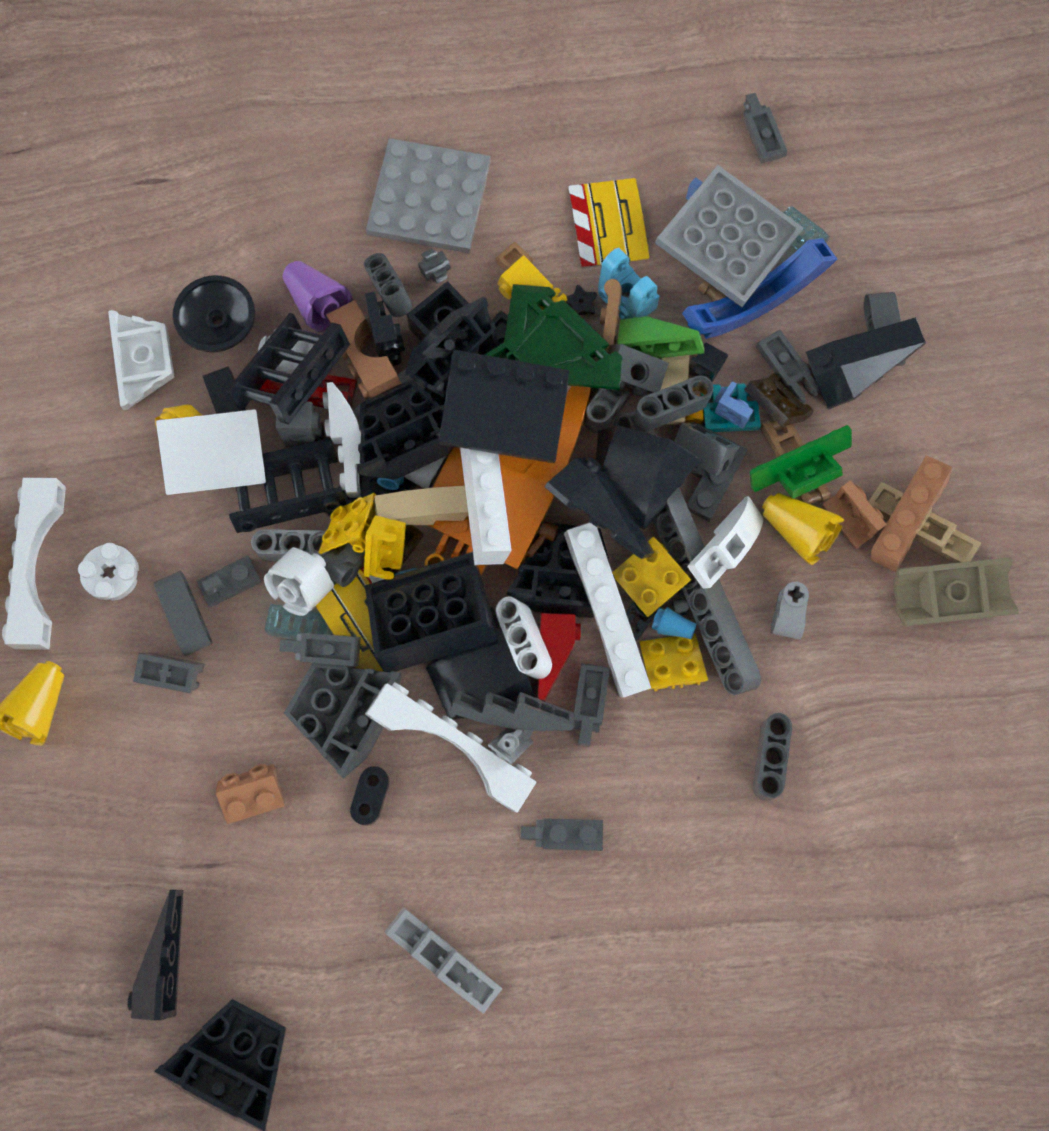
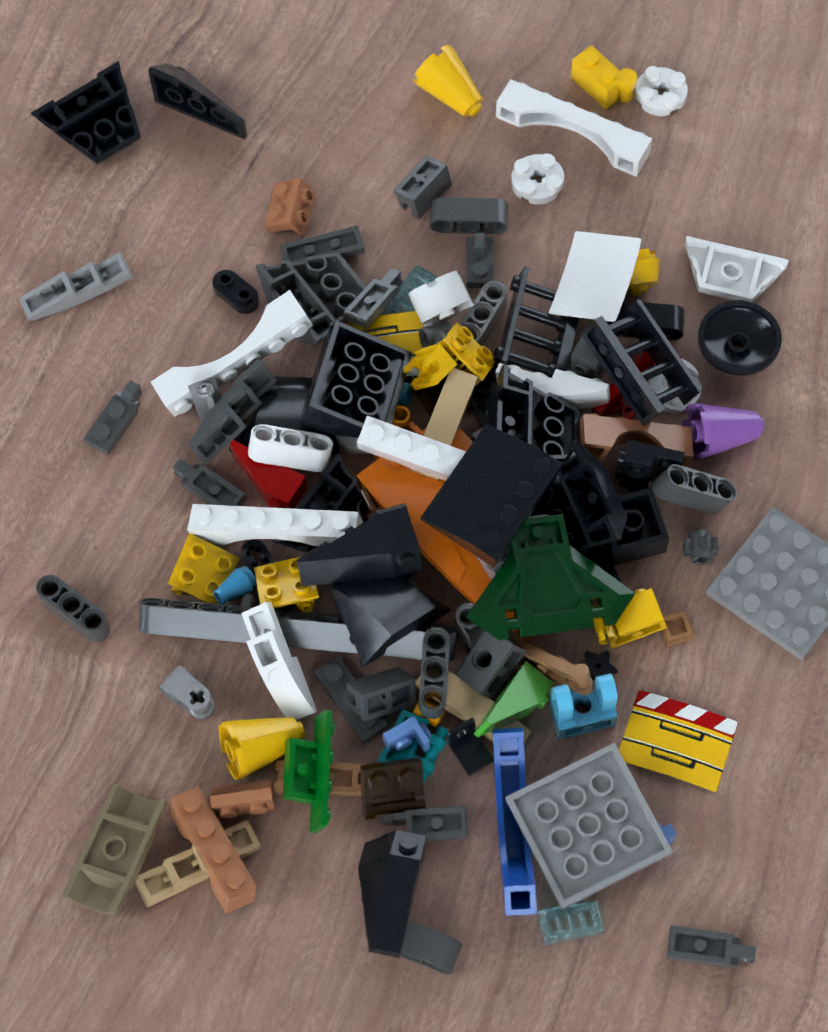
camera: 120 degrees right, 10 degrees down
(283, 734) = (345, 241): none -> dark grey plate

